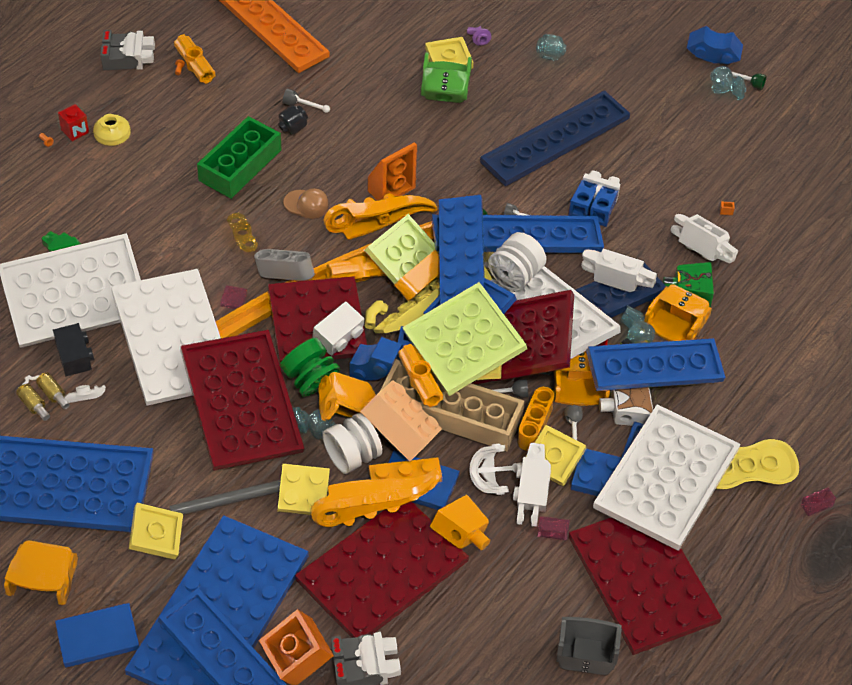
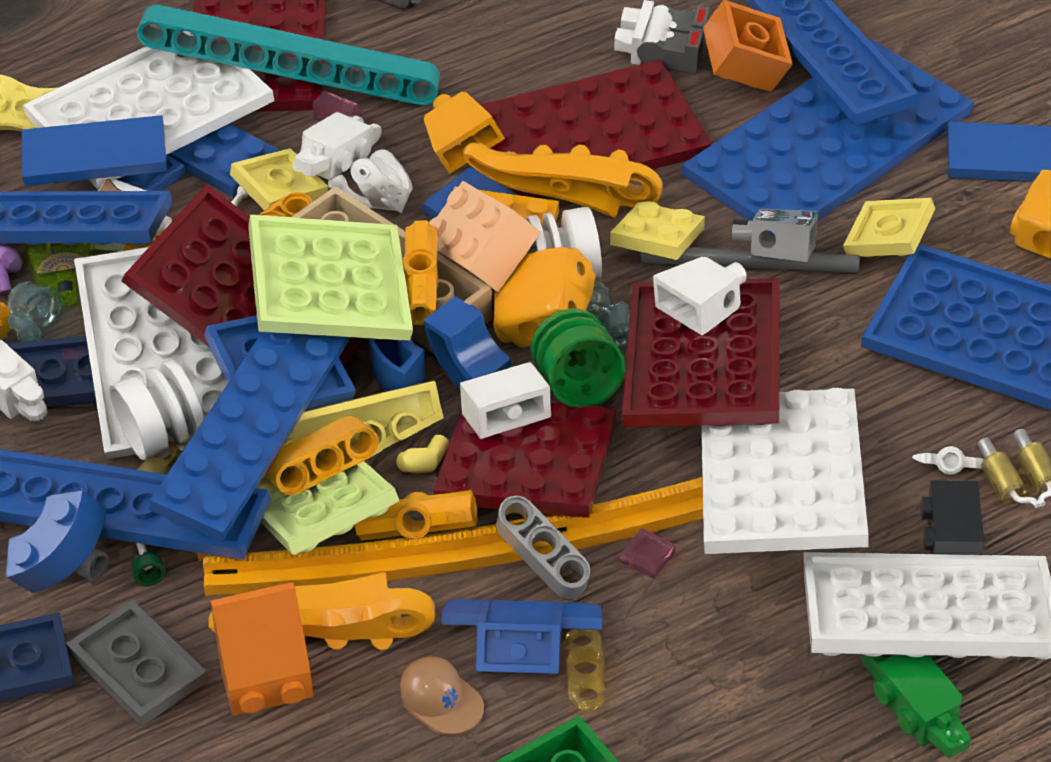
camera: 155 degrees left, 5 degrees down
(223, 499) = (793, 231): none -> light grey torso
(254, 424) = (699, 292): none -> white torso
(283, 234) = (520, 633): none -> blue plate
(455, 174) = (137, 662): none -> dark grey plate
(527, 196) = (56, 541): none -> blue brick
(599, 530) = (274, 61): none -> teal beam
(669, 416) = (93, 150): none -> blue tile

